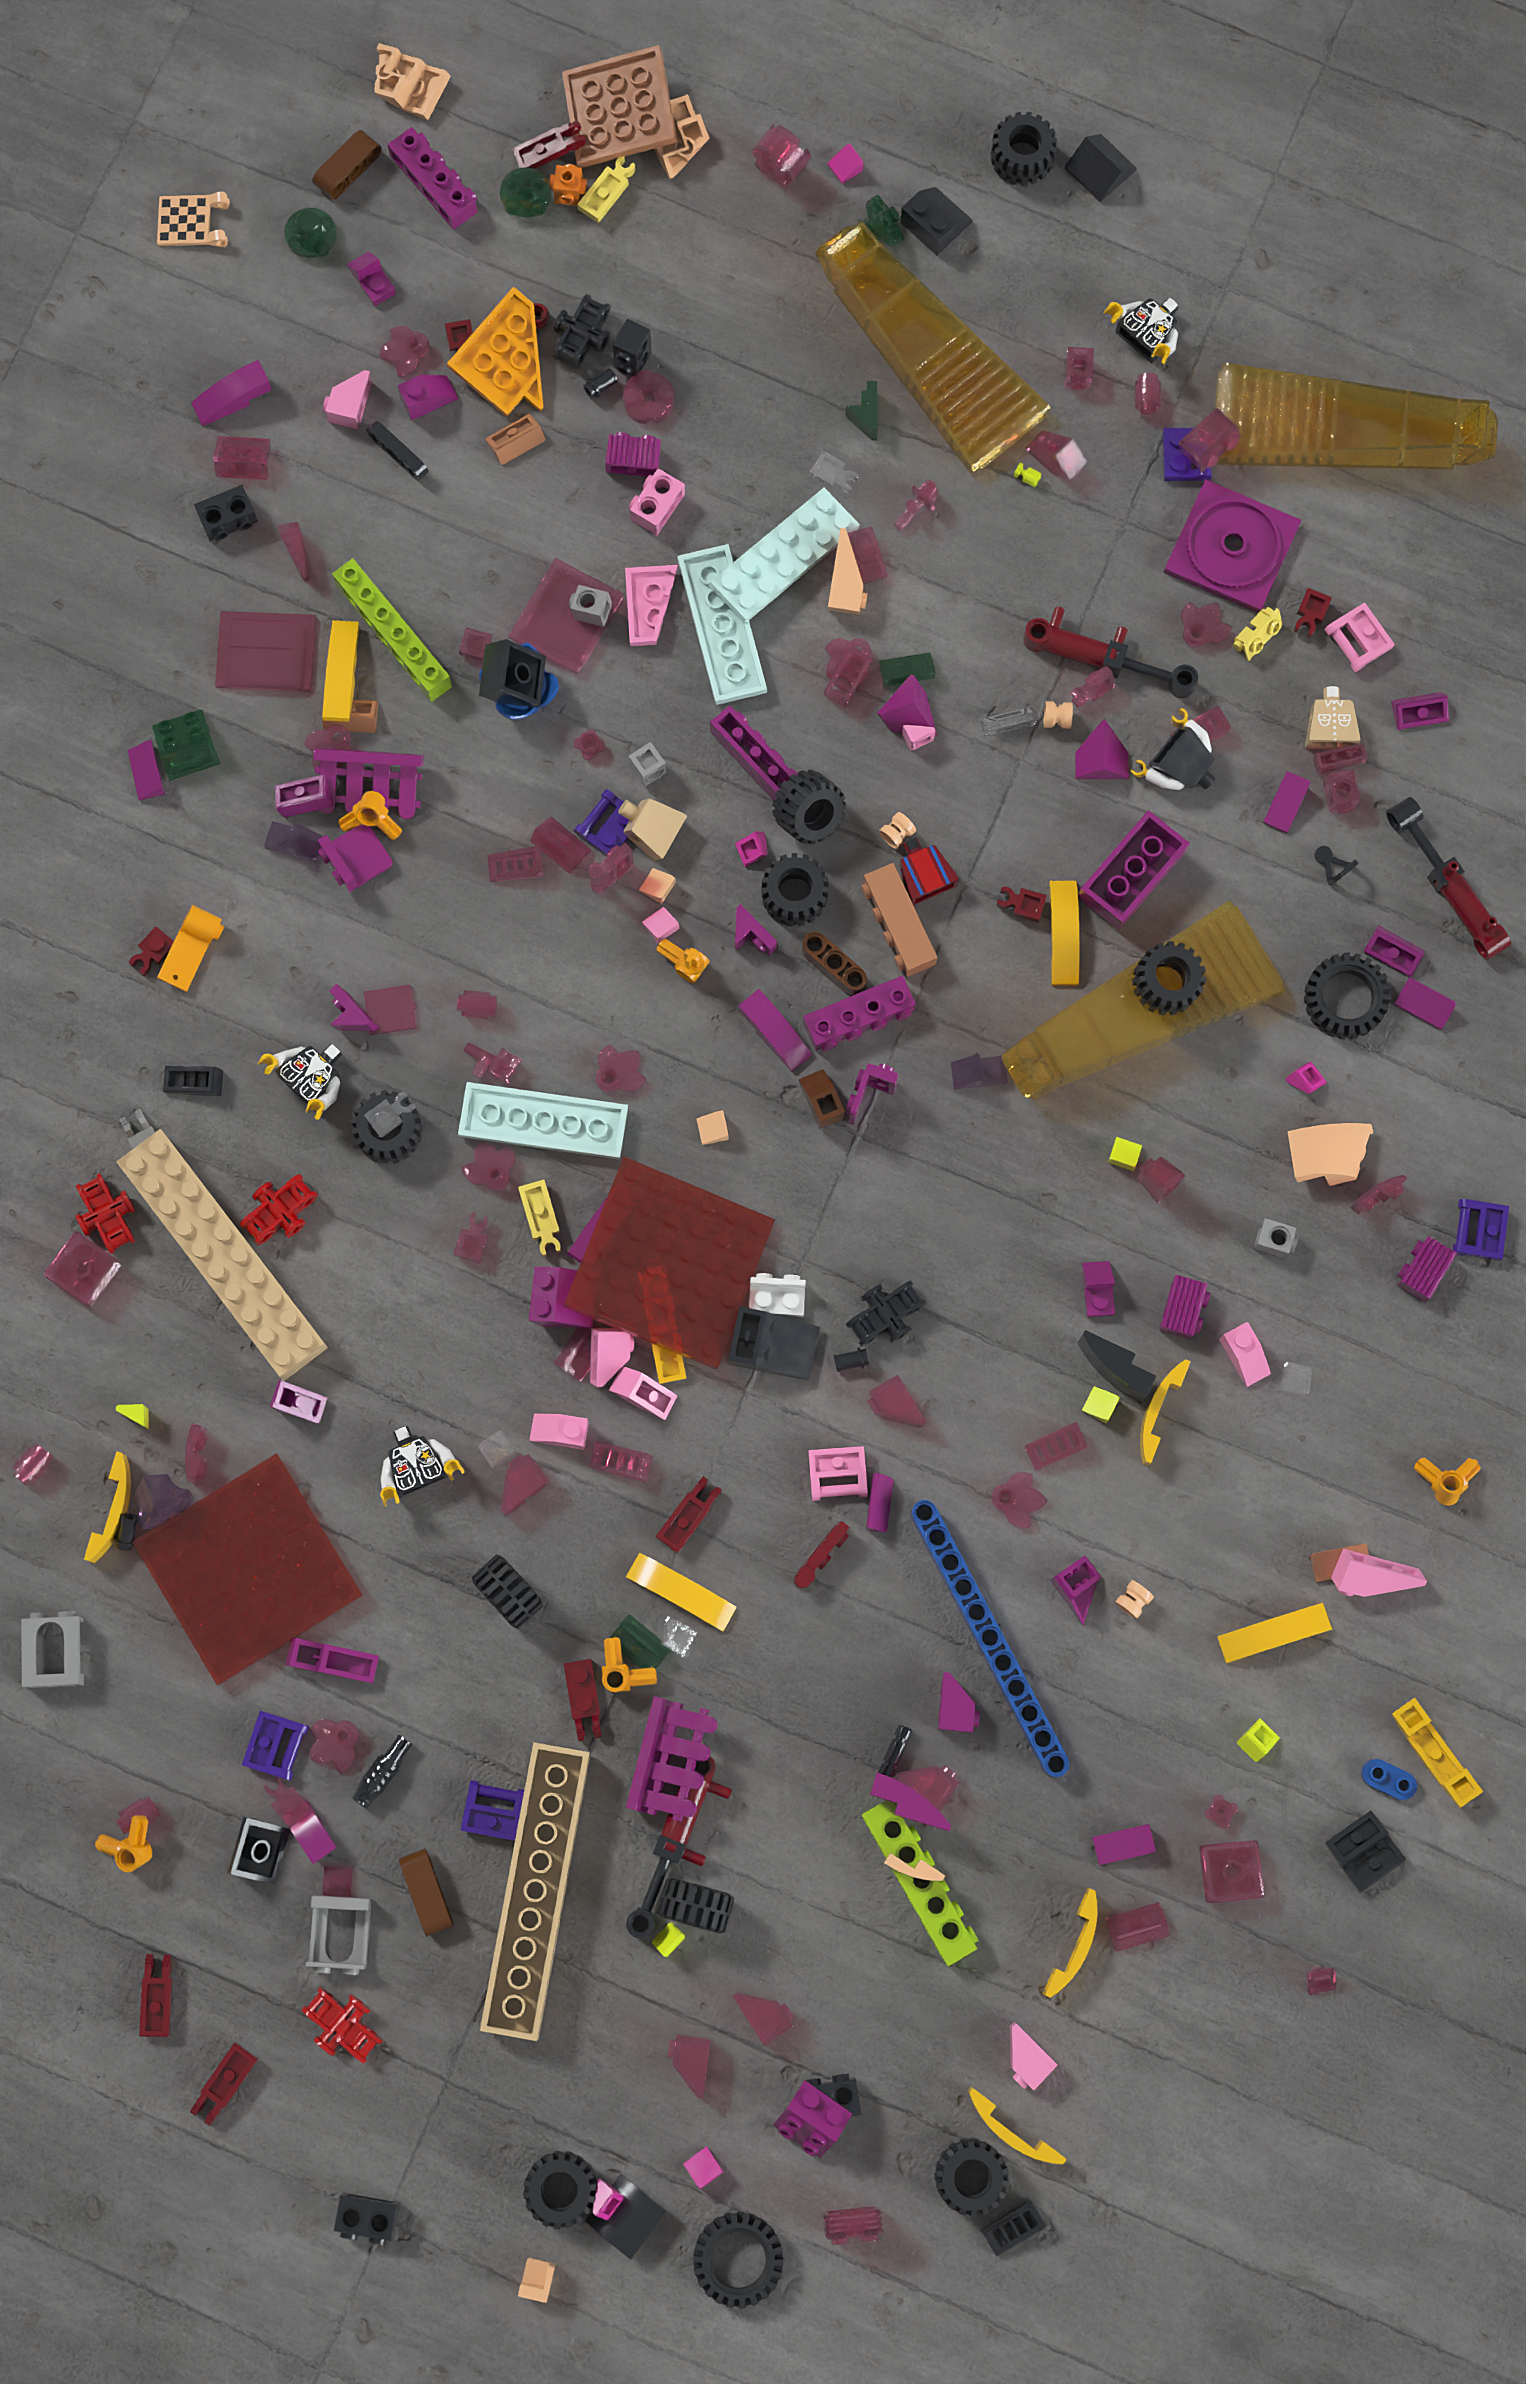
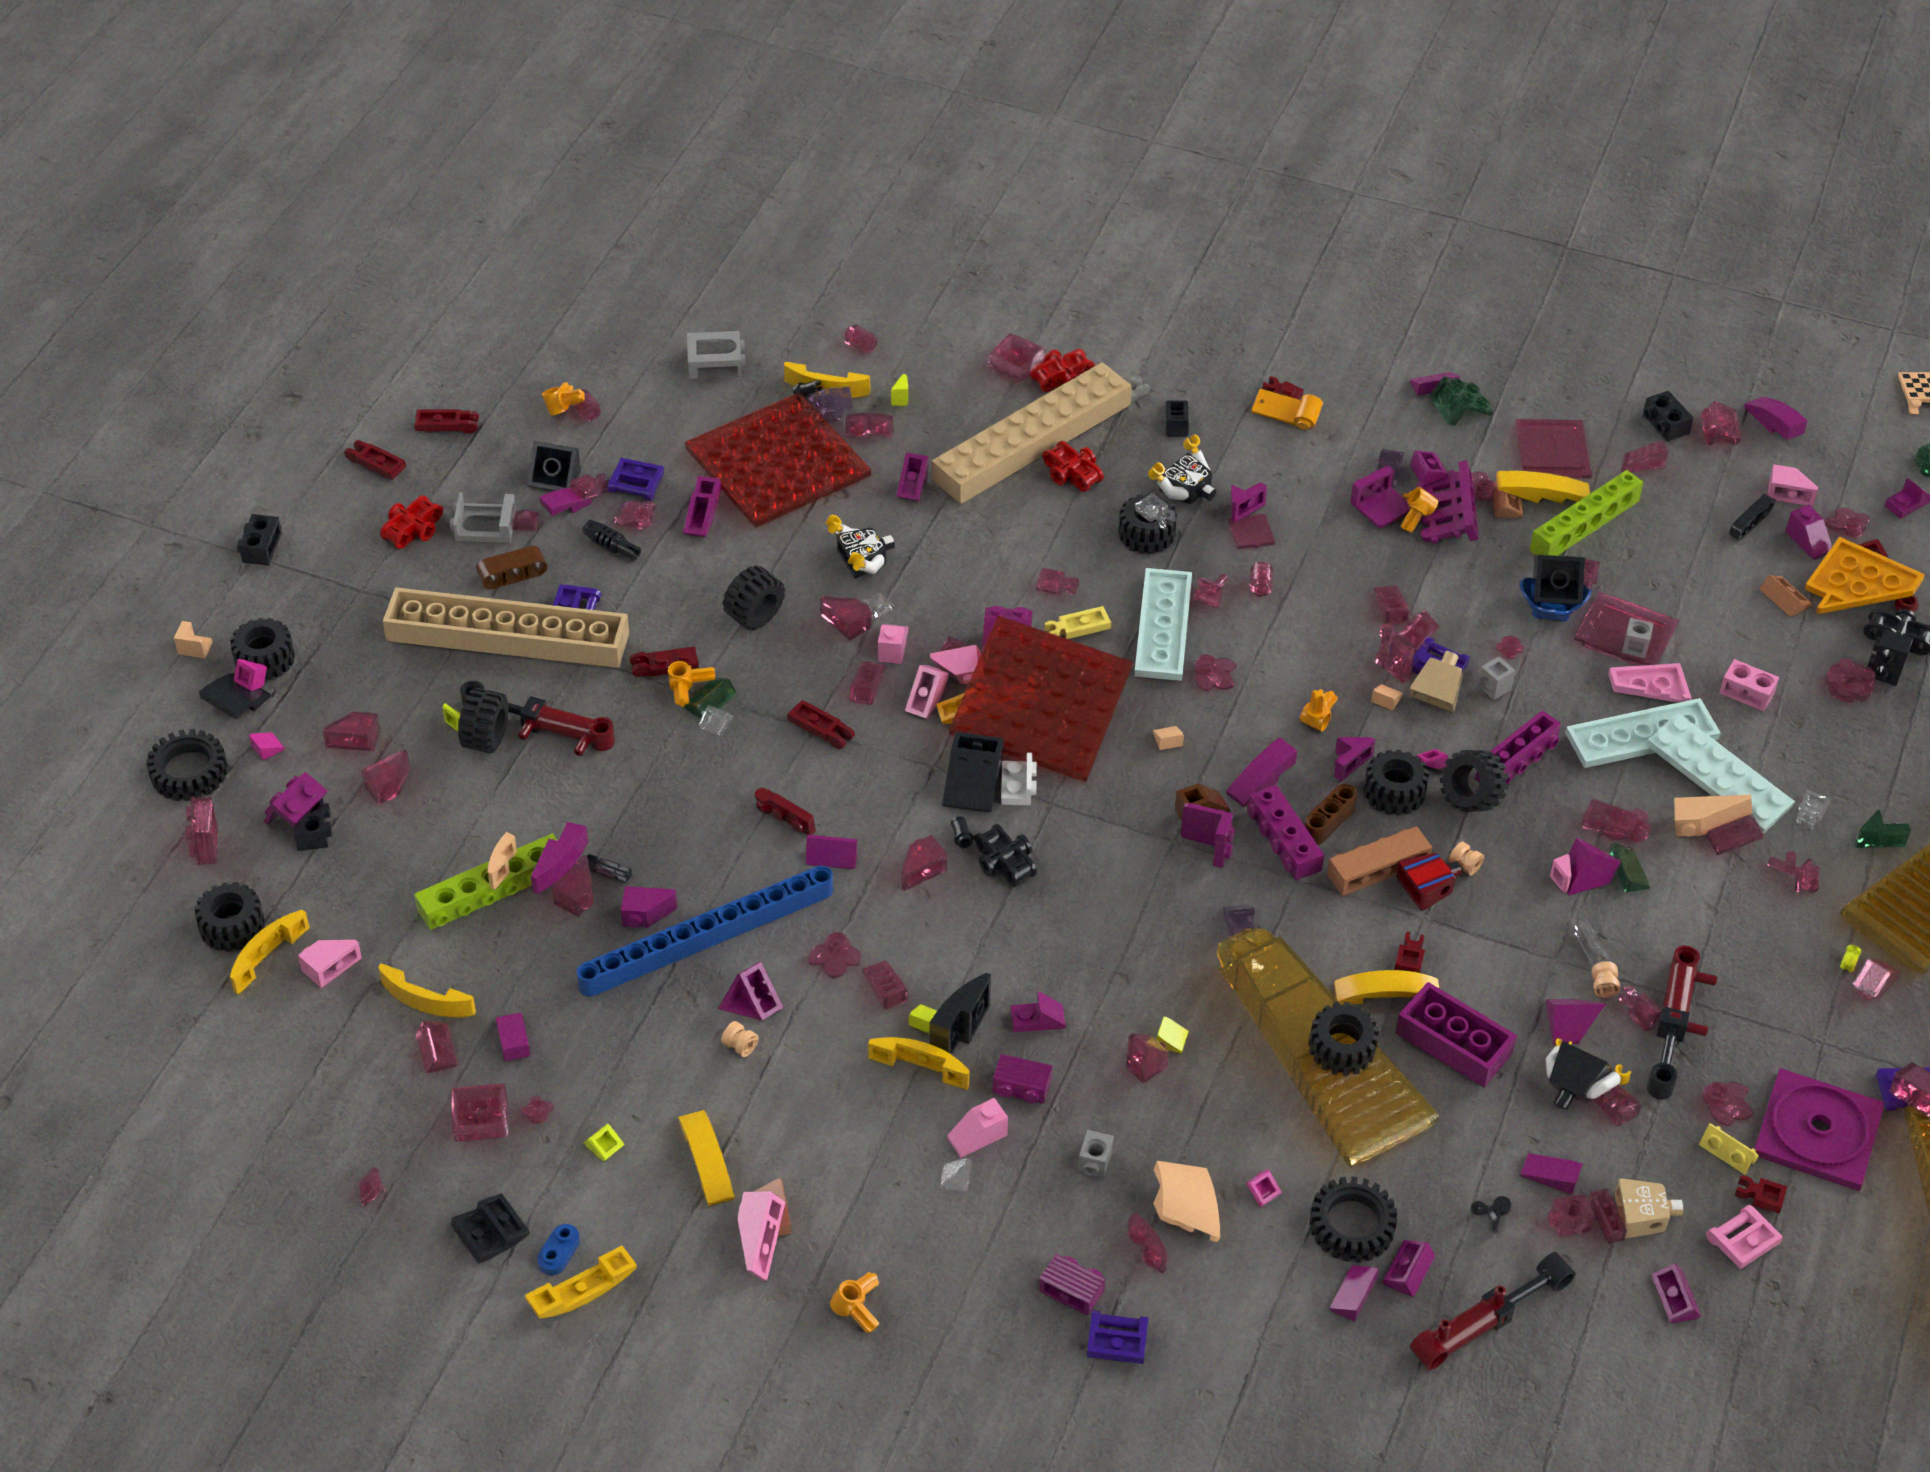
camera: 90 degrees right, 30 degrees down
(489, 1162) = (1120, 593): clear pink plate -> none
(600, 383) = (1853, 646): black pin -> none
(632, 454) = (1790, 665): magenta brick -> none
(655, 1755) = (610, 704): magenta fence -> none
(661, 925) = (1350, 699): bright pink slope -> none
(681, 1591) = (750, 722): yellow slope -> none
(837, 1463) = (866, 821): bright pink plate -> none
(1019, 2237) = (185, 968): black slope -> none

